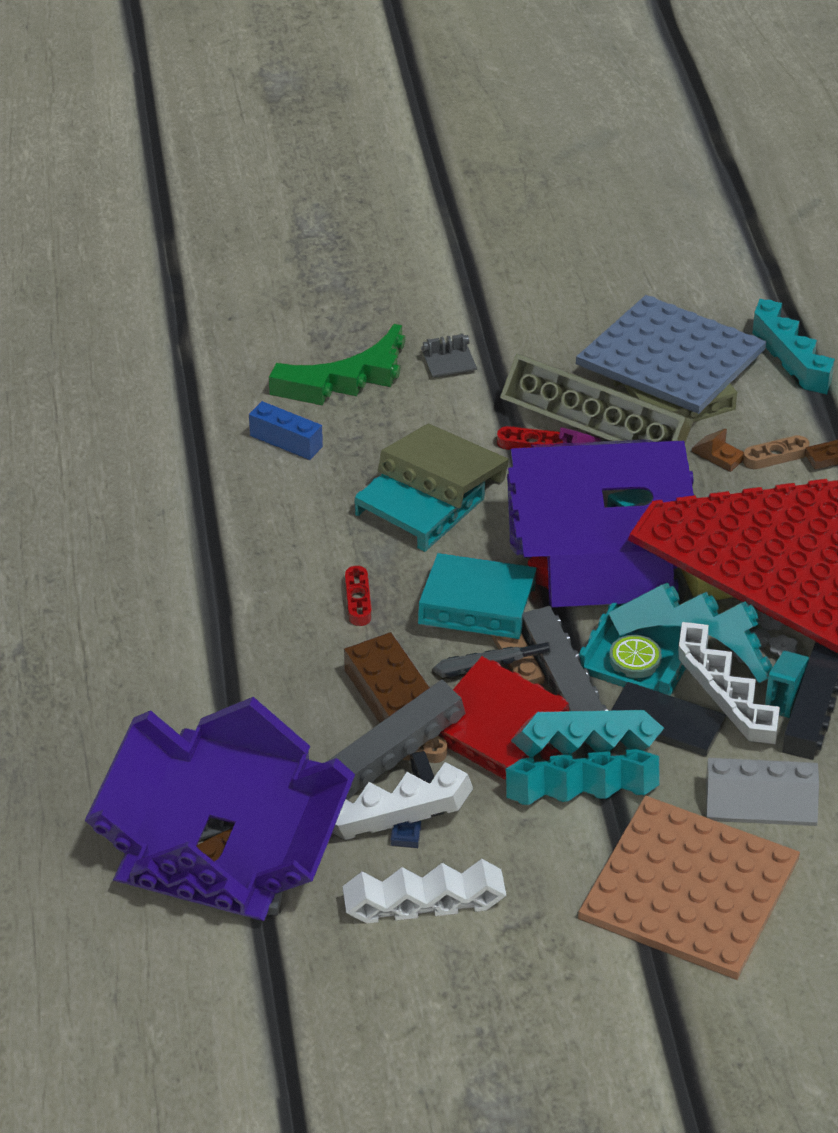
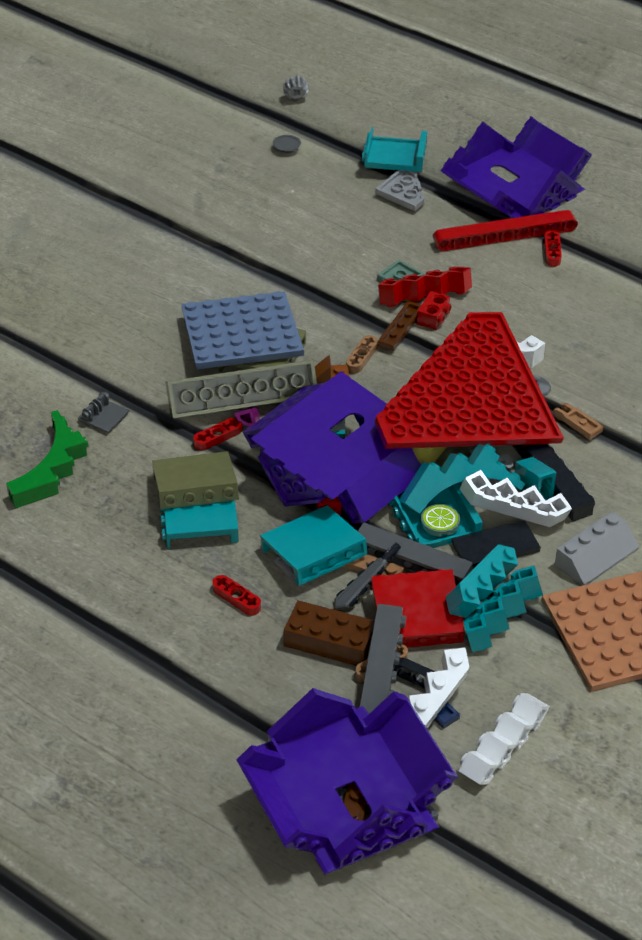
camera: 45 degrees left, 0 degrees up
(285, 430) = (63, 522): blue brick -> none
(794, 351) = (305, 289): teal brick -> none

